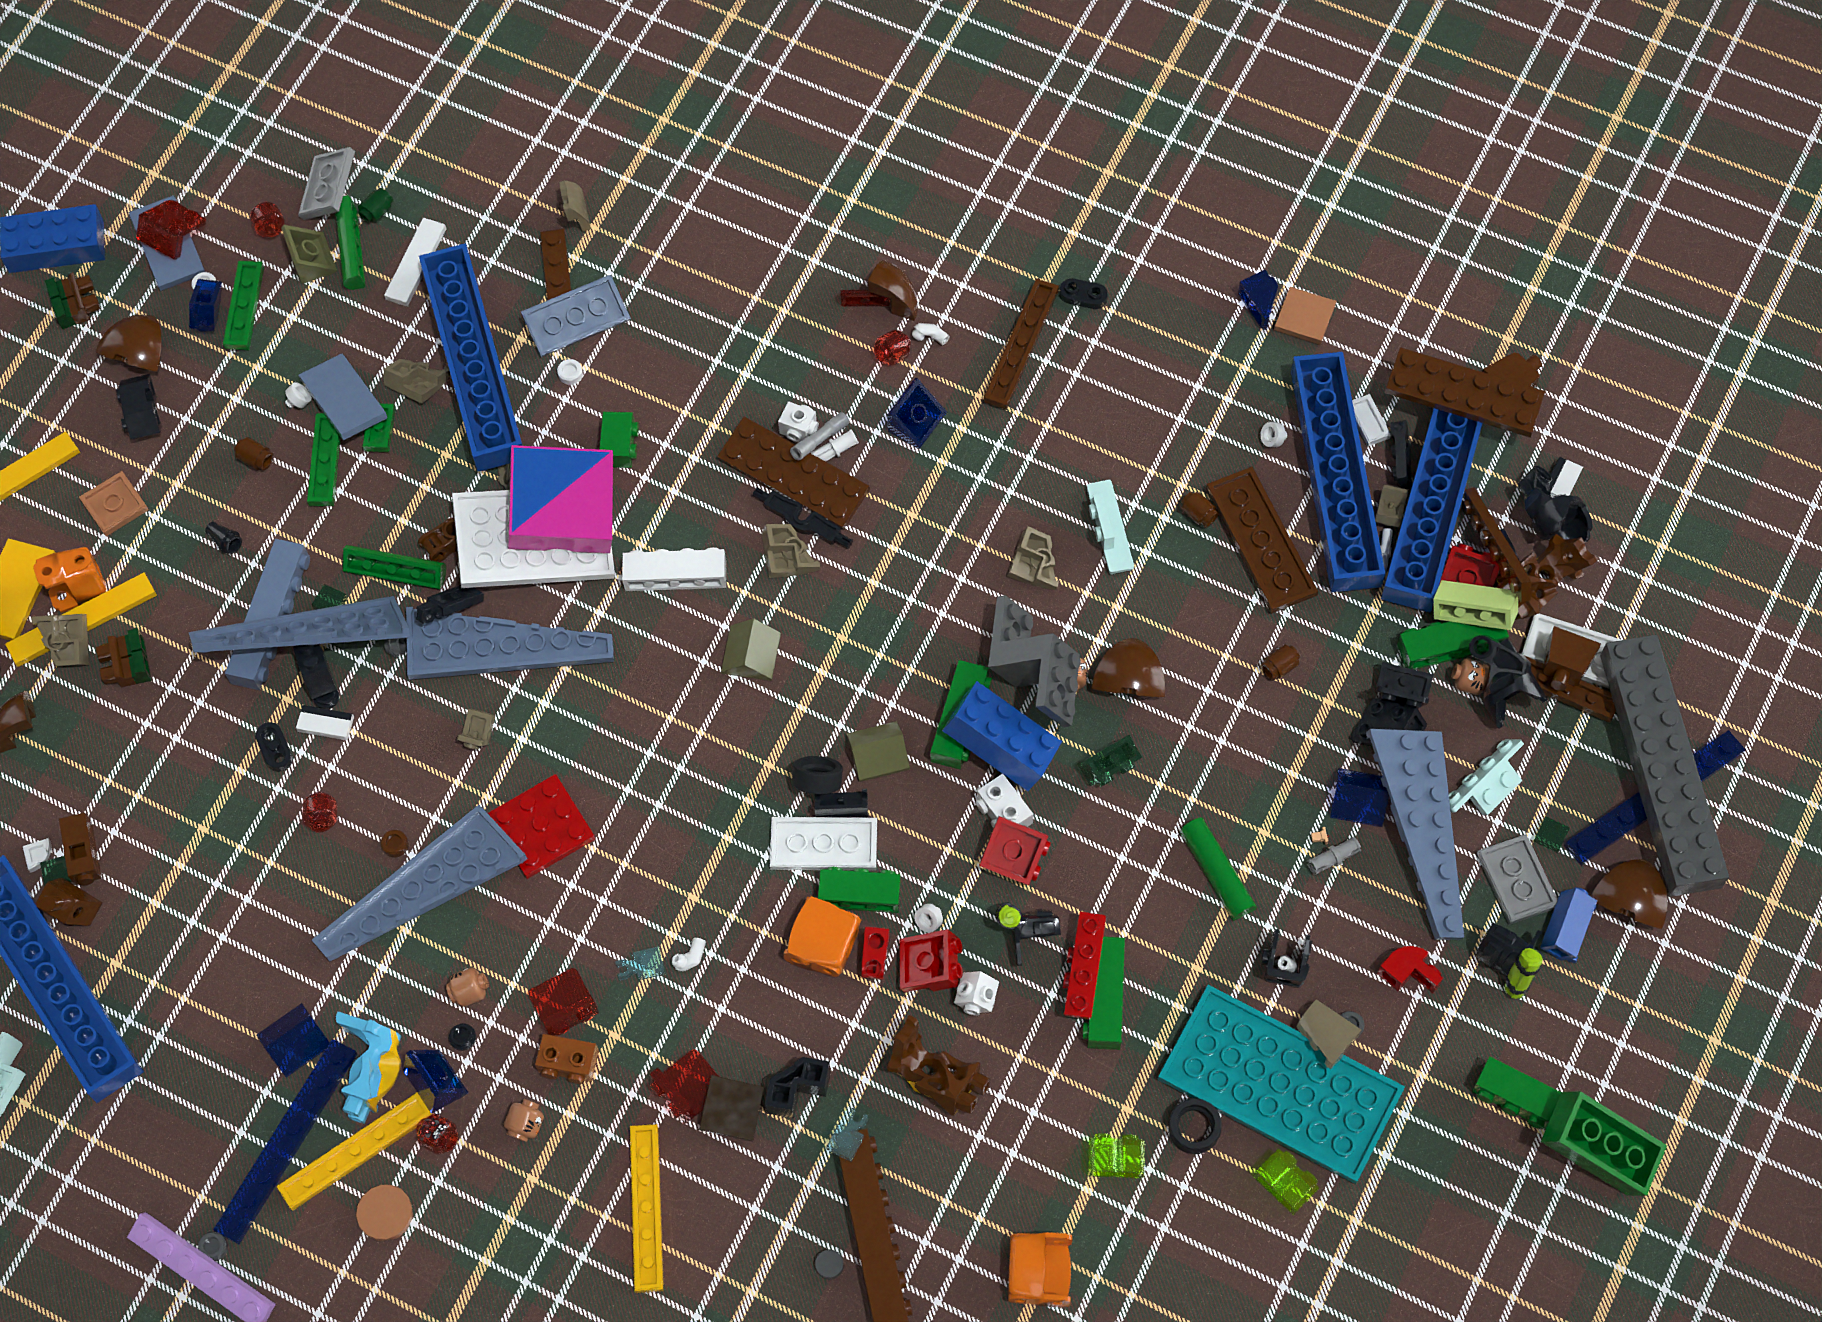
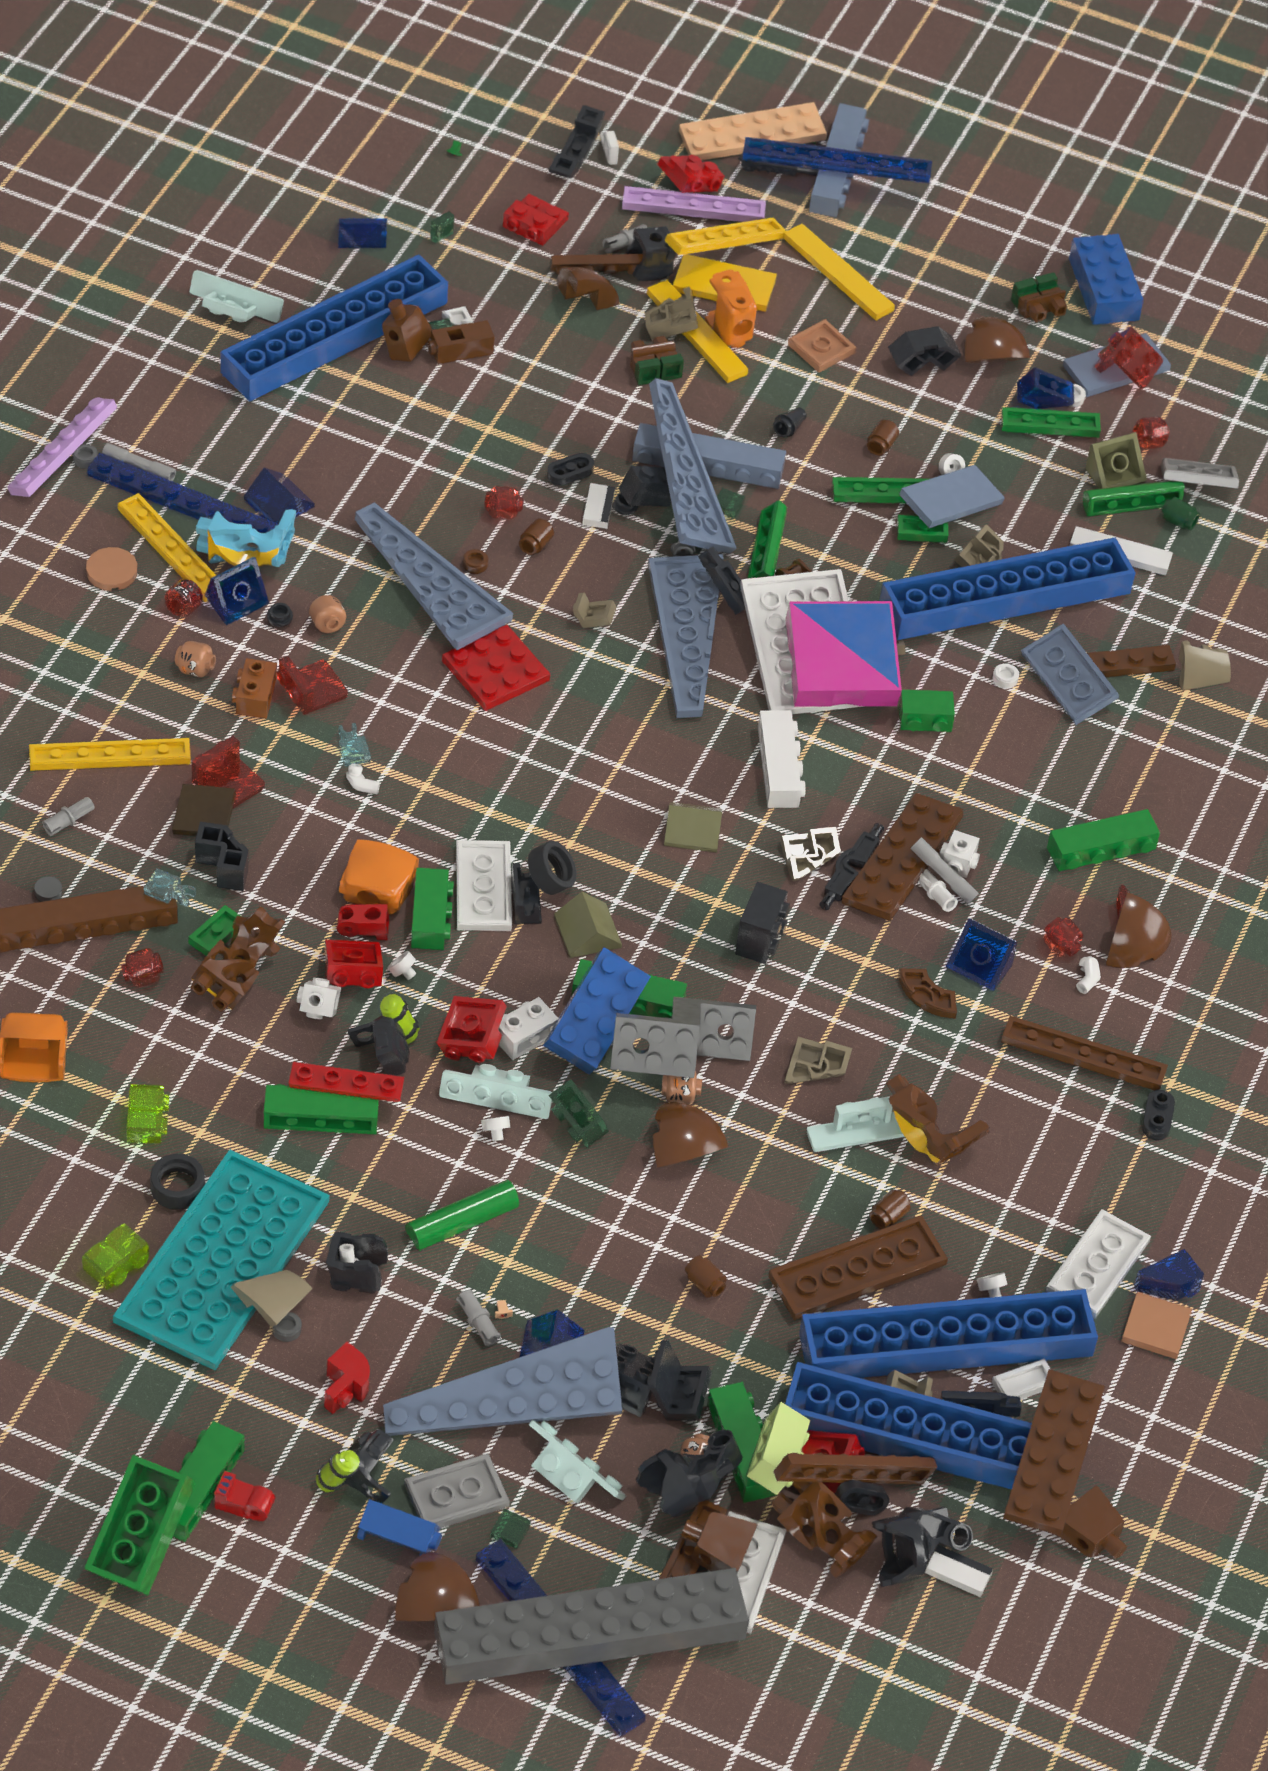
camera: 80 degrees right, 15 degrees down
(220, 1202) = (150, 466): none -> light grey piece
(369, 781) = (536, 536): none -> reddish brown brick
(734, 1245) = (67, 816): none -> light grey axle
(779, 306) = (1103, 840): none -> green brick
(886, 591) = (762, 923): none -> black brick
(886, 1094) = (214, 929): none -> green plate
(936, 1164) = (142, 967): none -> clear red head
(951, 466) = (927, 994): none -> reddish brown tile
(1073, 834) = (496, 1090): none -> light aqua bracket
(1113, 472) = (917, 1120): none -> reddish brown hips
(1118, 835) = (496, 1126): none -> white tile
(1242, 354) = (1100, 1260): none -> white tile
(1545, 1058) = (243, 1498): none -> red leg

